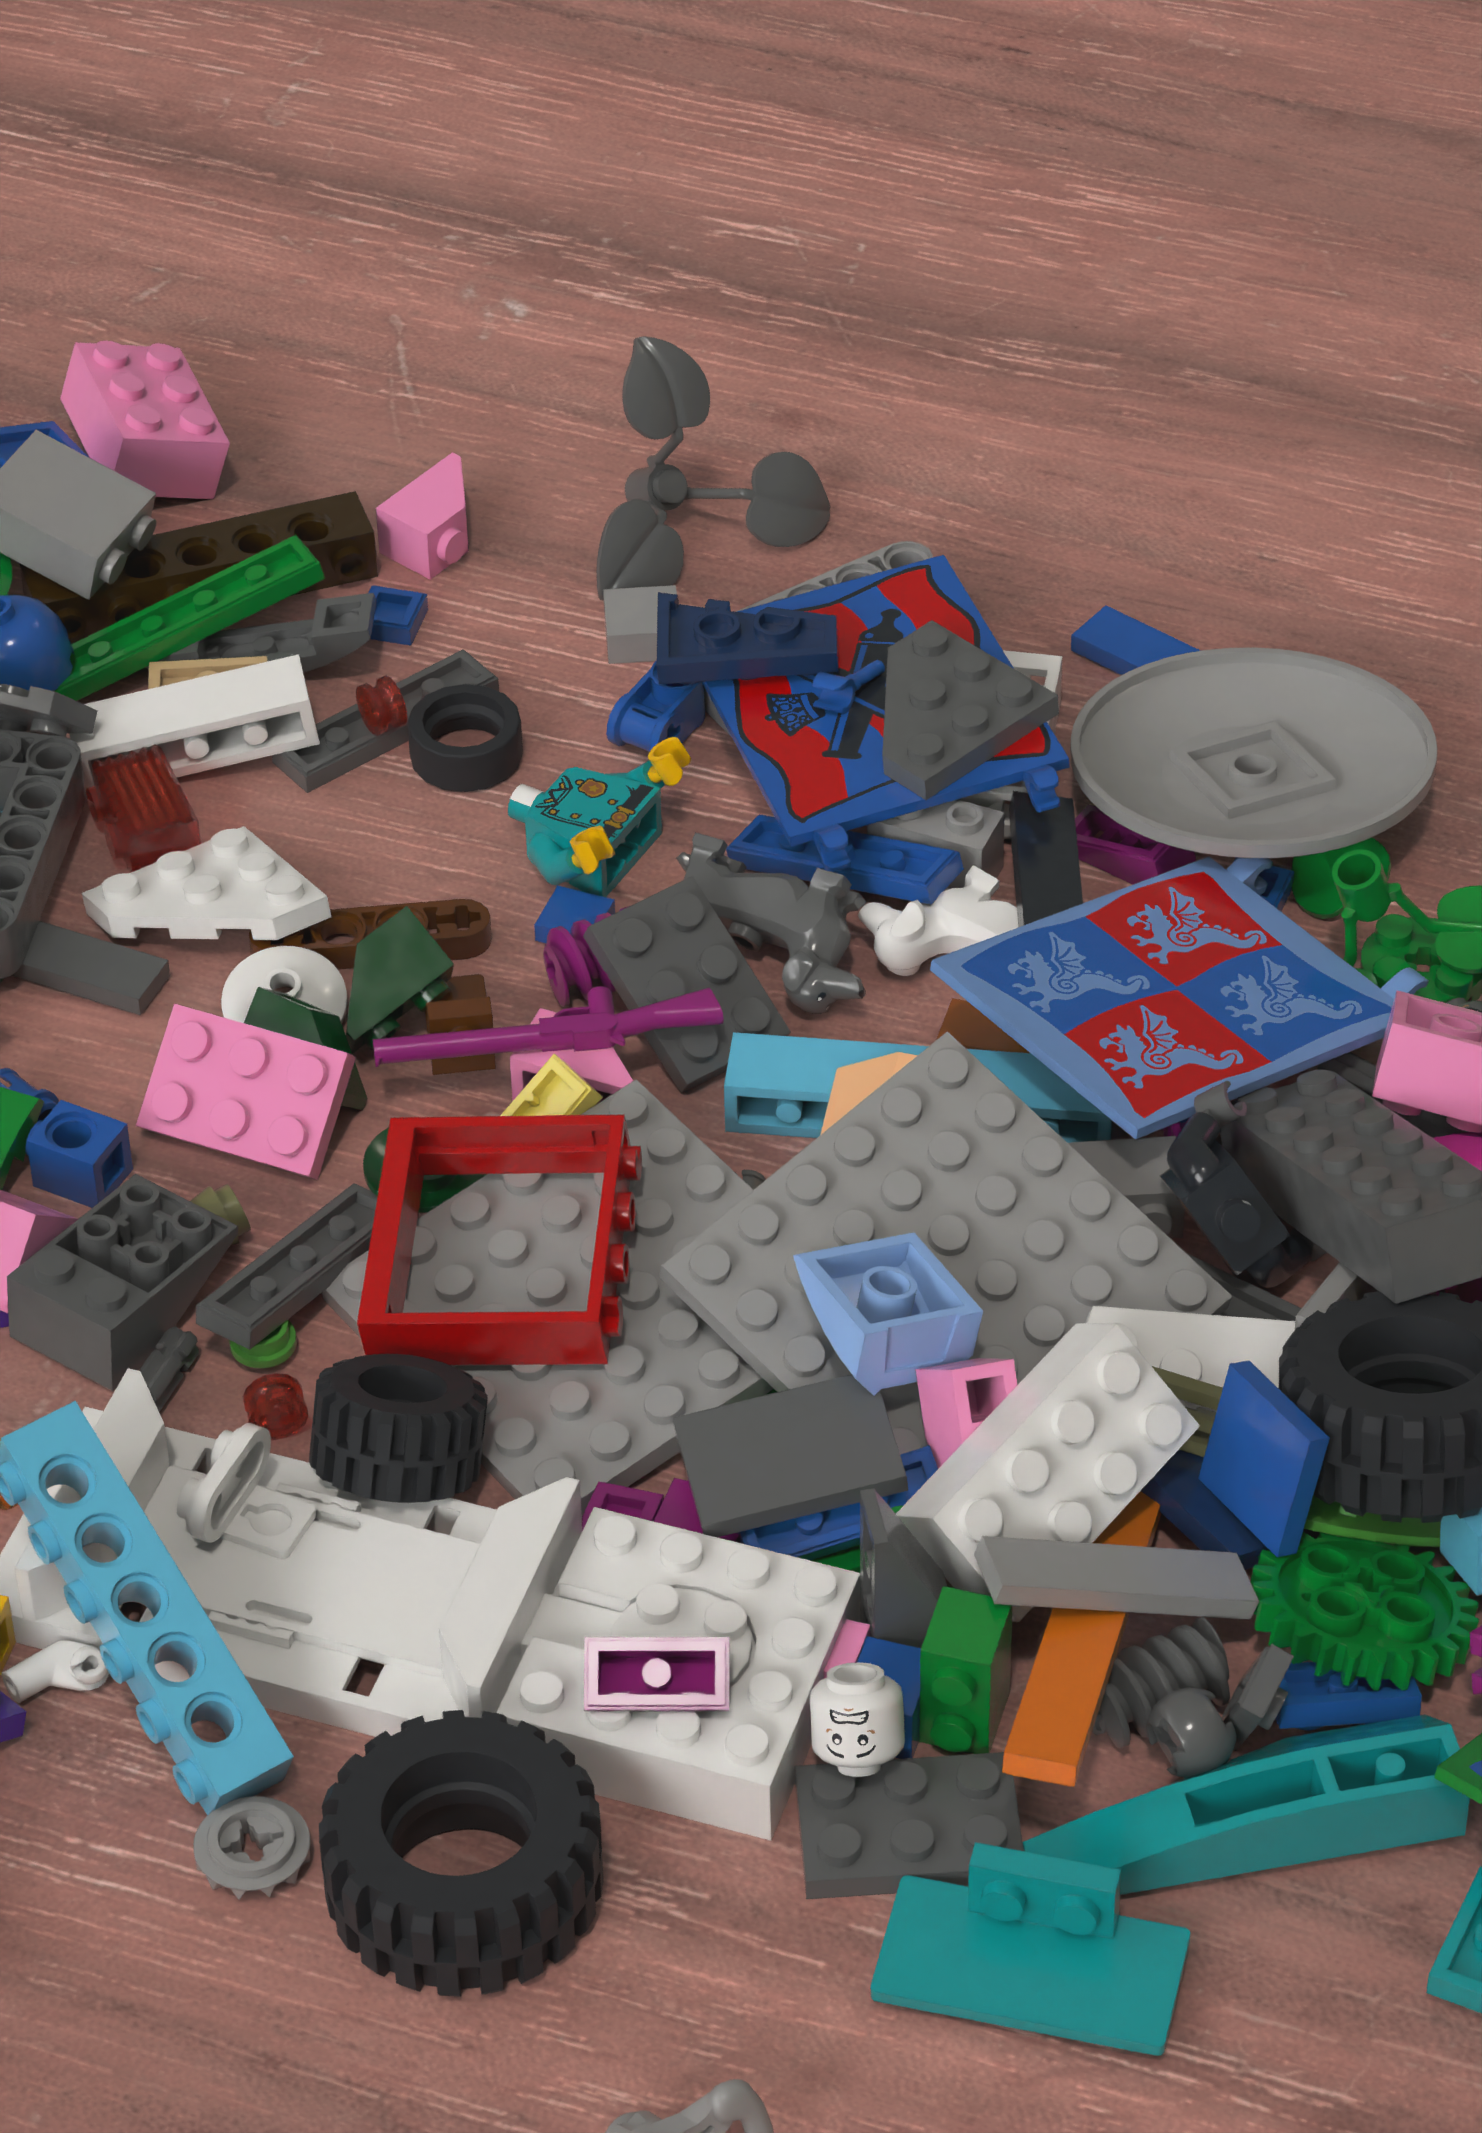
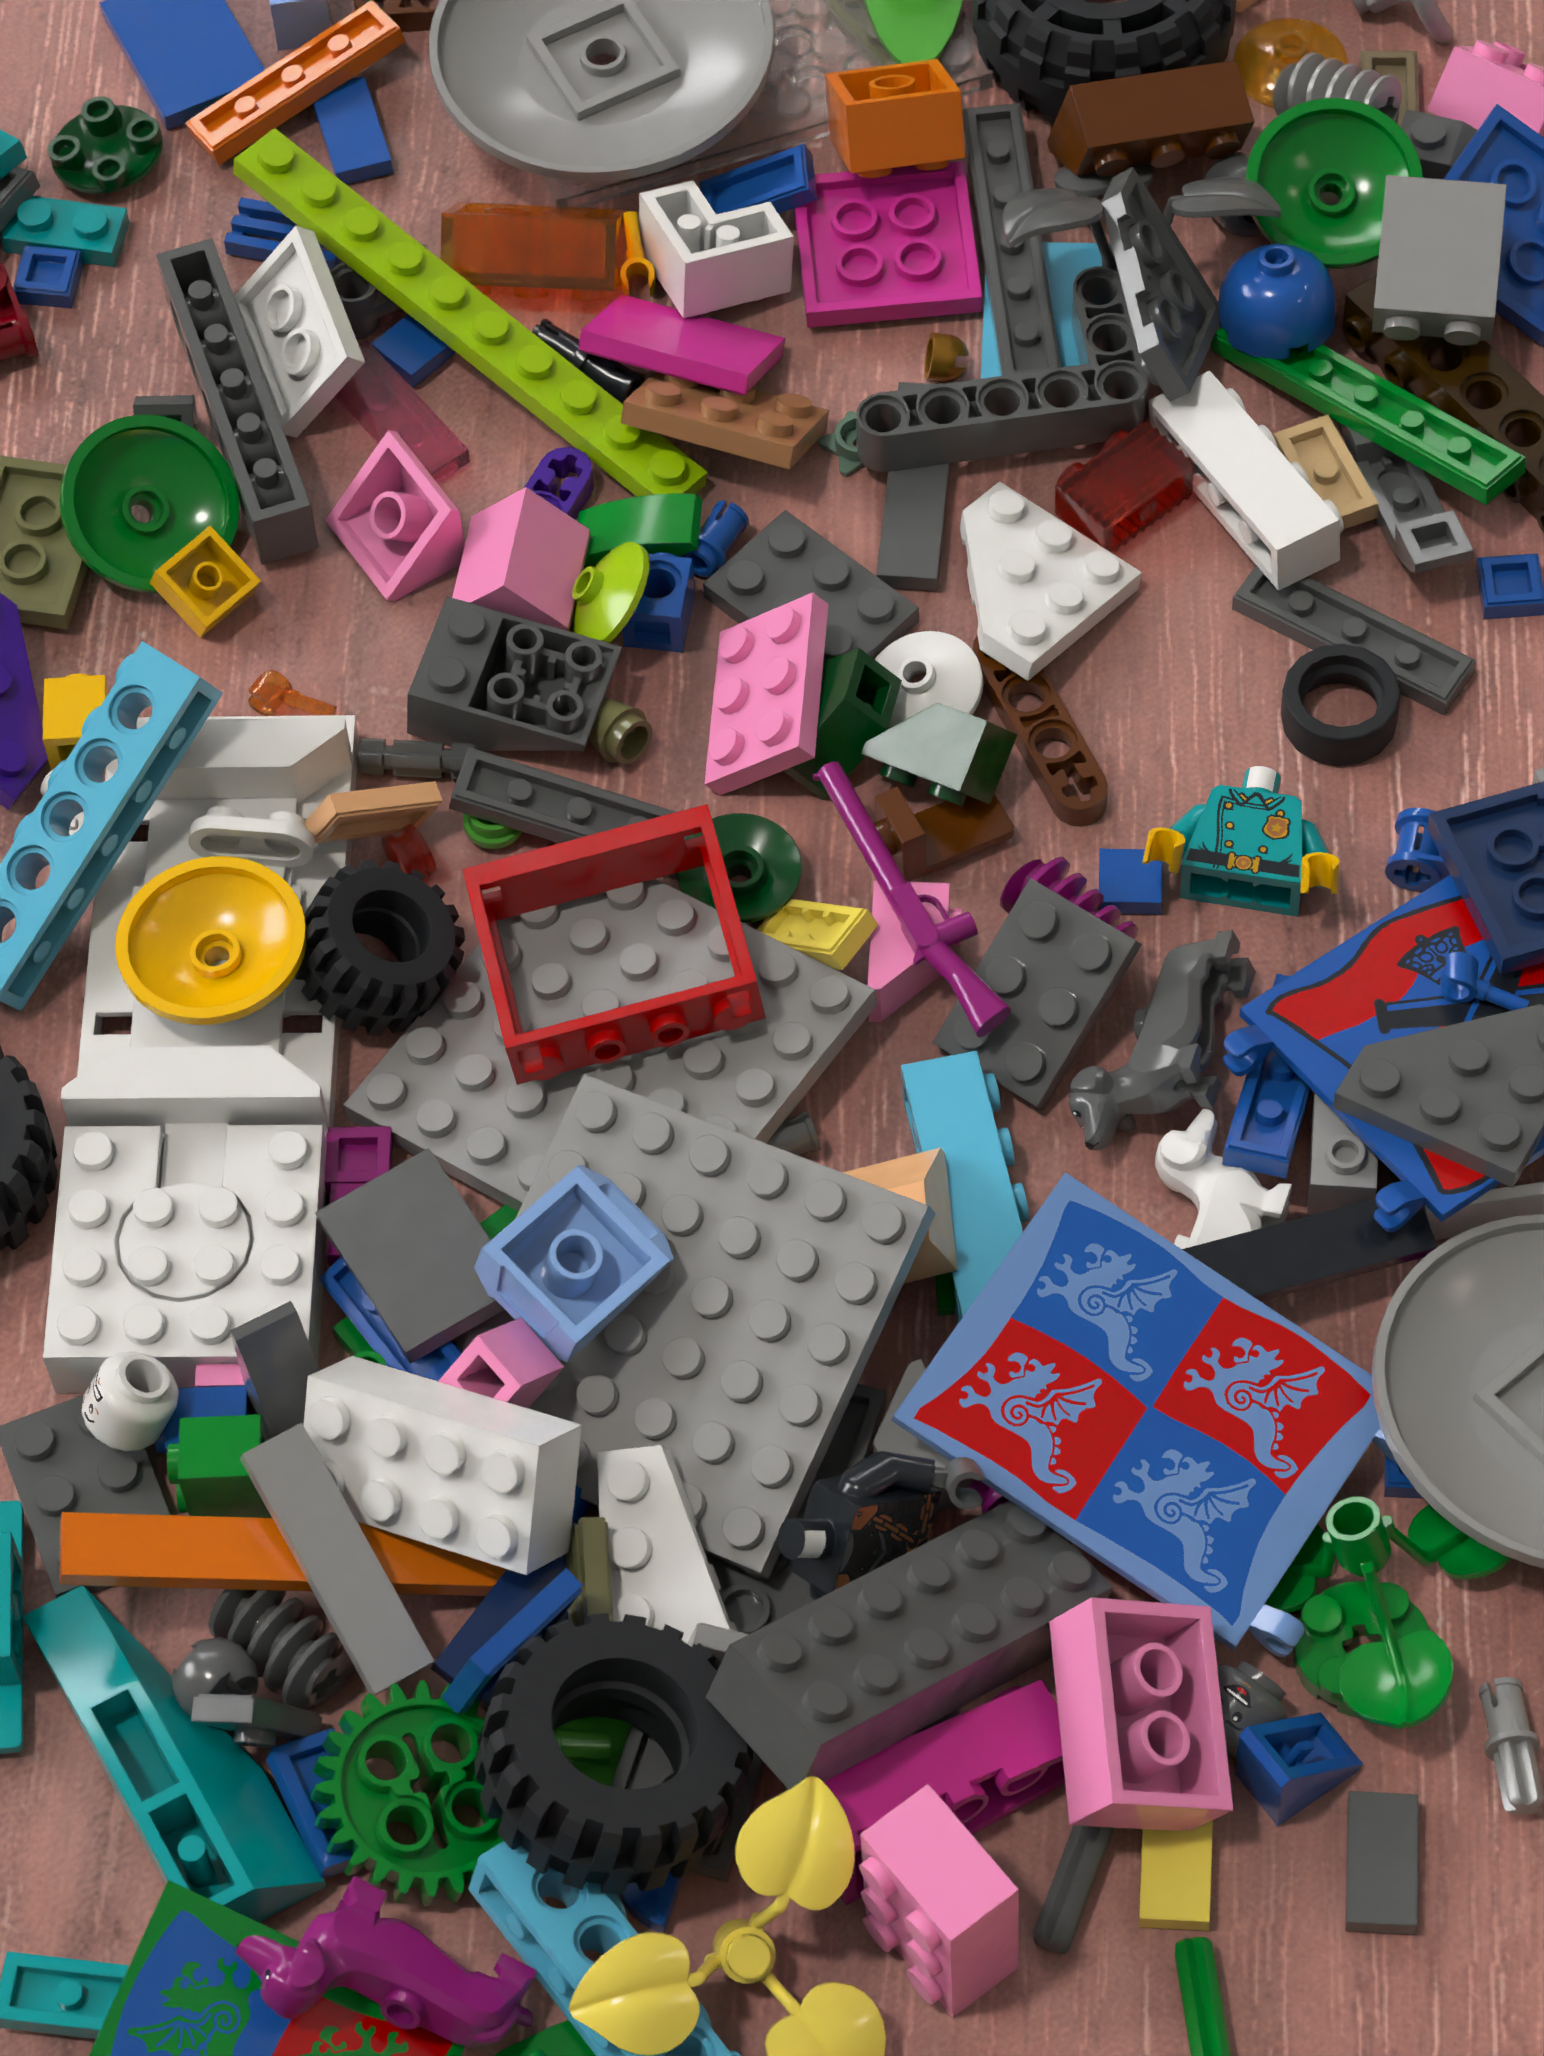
camera: 75 degrees right, 15 degrees up
(79, 1152) = (610, 592): none -> lime dish
(110, 1057) = (795, 561): none -> dark grey plate
(227, 1393) = (373, 811): none -> light nougat tile
(340, 1504) = (205, 915): none -> yellow dish
(381, 705) = (1331, 616): clear red bush -> none
(656, 1674) = (122, 1227): slope -> none

